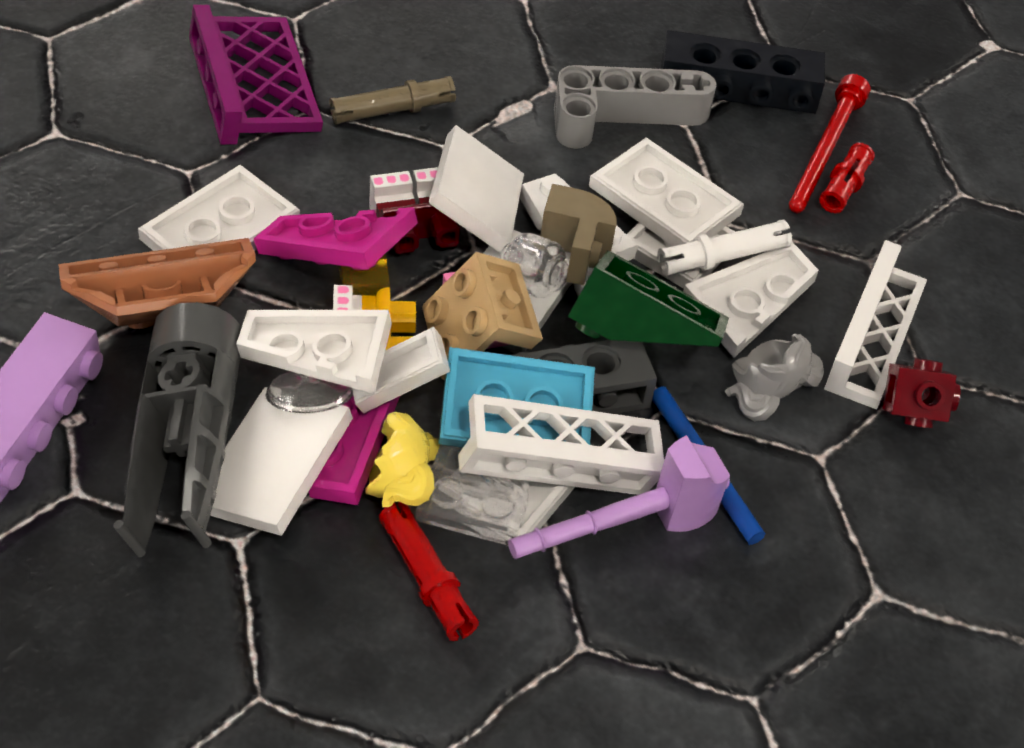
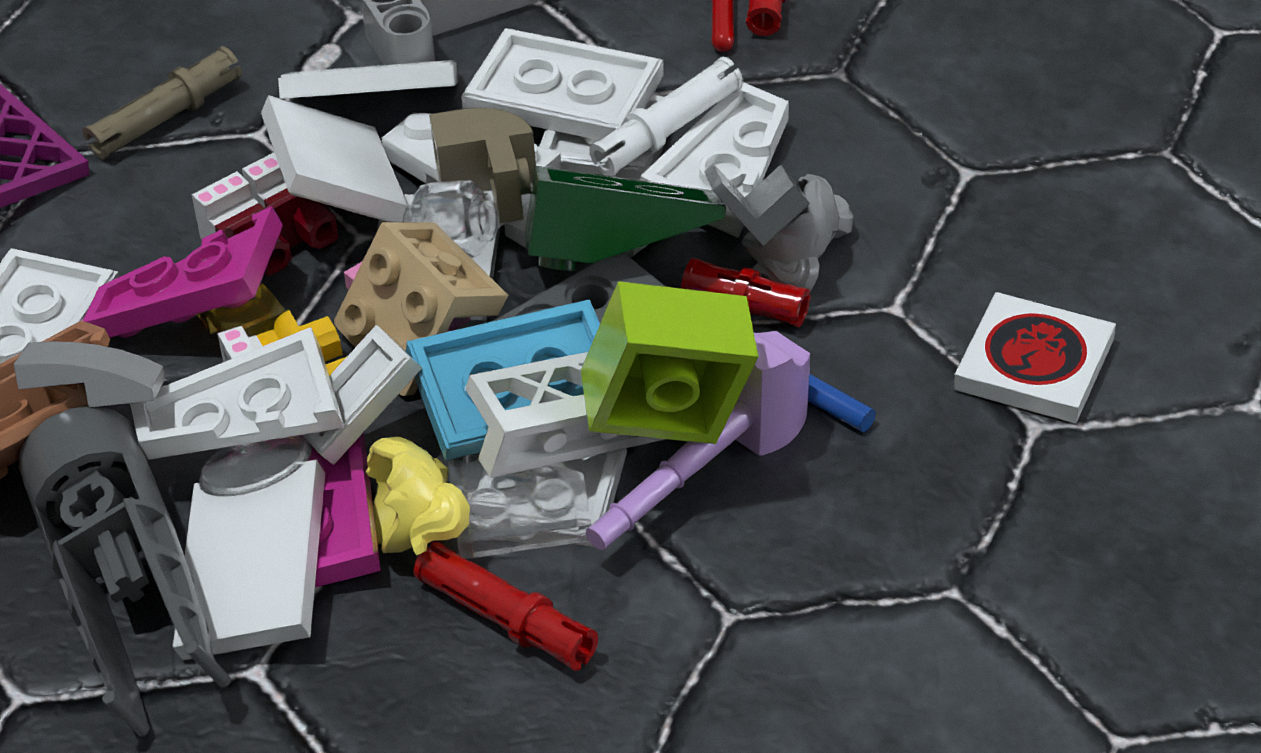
camera: 15 degrees left, 5 degrees down
(233, 285) = (107, 372): none -> light grey slope
(534, 138) = (368, 79): none -> white tile
(617, 444) = (668, 363): none -> lime brick
(717, 402) = (763, 295): none -> red pin
(755, 348) = (766, 207): none -> dark grey panel
(865, 317) = (876, 148): white fence -> none
(904, 541) = (1035, 357): none -> tile
(905, 391) = (975, 188): dark red brick -> none

